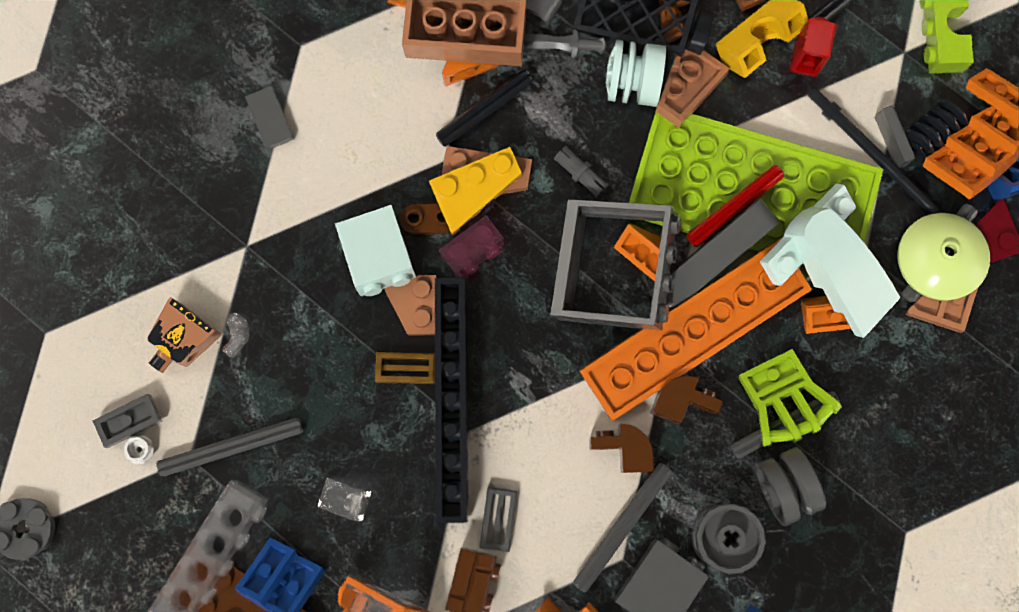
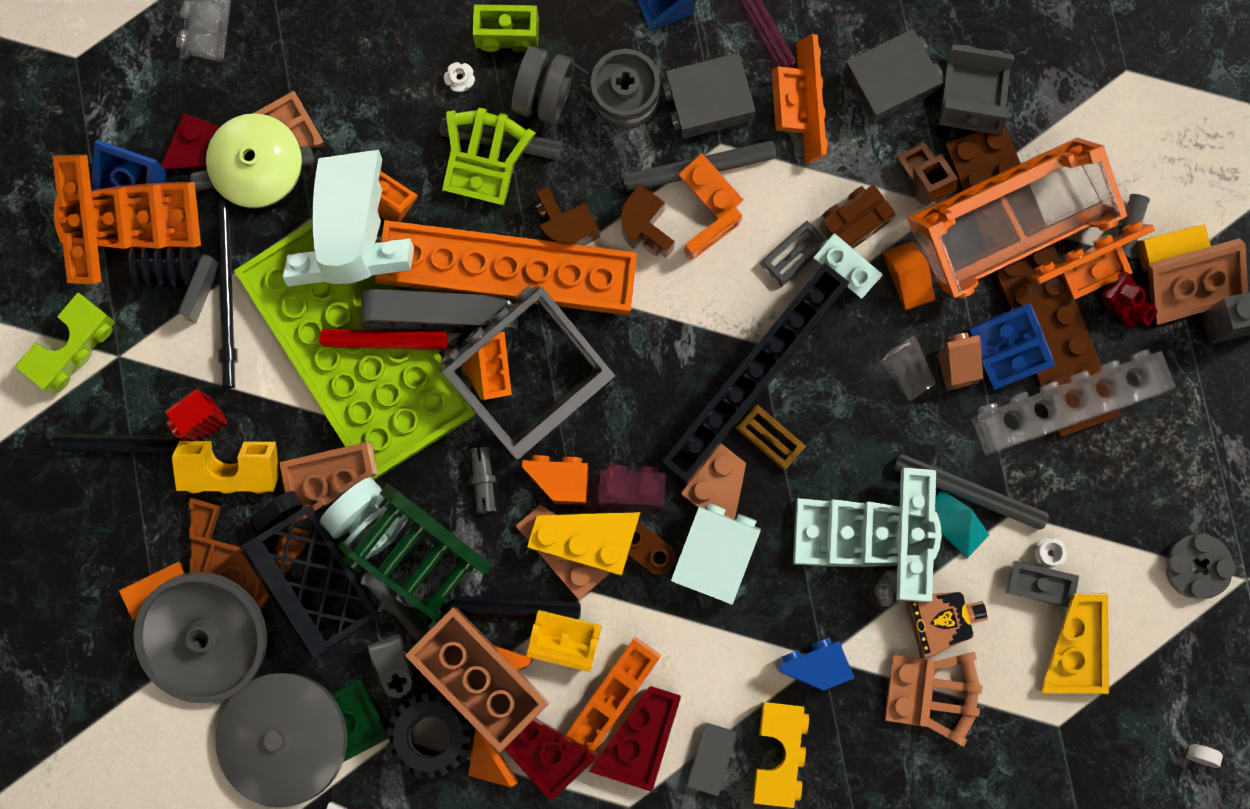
camera: 140 degrees left, 0 degrees up
(65, 396) = (1082, 648): none -> yellow wing
(165, 271) = (912, 689): none -> nougat plate
(210, 135) = (780, 784): none -> yellow arch
(225, 414) = (959, 524): none -> teal slope
(242, 233) = (820, 668): none -> blue slope
(272, 357) = (876, 534): none -> light aqua slope
(308, 534) = (961, 361): none -> nougat slope
(326, 89) = (641, 741): none -> dark red wing
(369, 97) = (614, 694): none -> orange slope
(374, 29) = (549, 757): none -> dark red wing
(400, 574) = (910, 275): none -> orange slope
(431, 108) = (564, 641): none -> yellow hinge
(450, 538) = (848, 264): none -> light aqua hinge
(527, 212) = (561, 481): none -> orange slope
(569, 481) = (713, 233): none -> orange tile
(593, 95) = (420, 525): none -> dark green fence
(601, 516) = (710, 186): none -> orange plate
(849, 442) = (462, 84): none -> white plate
(857, 510) = (505, 27): none -> lime brick

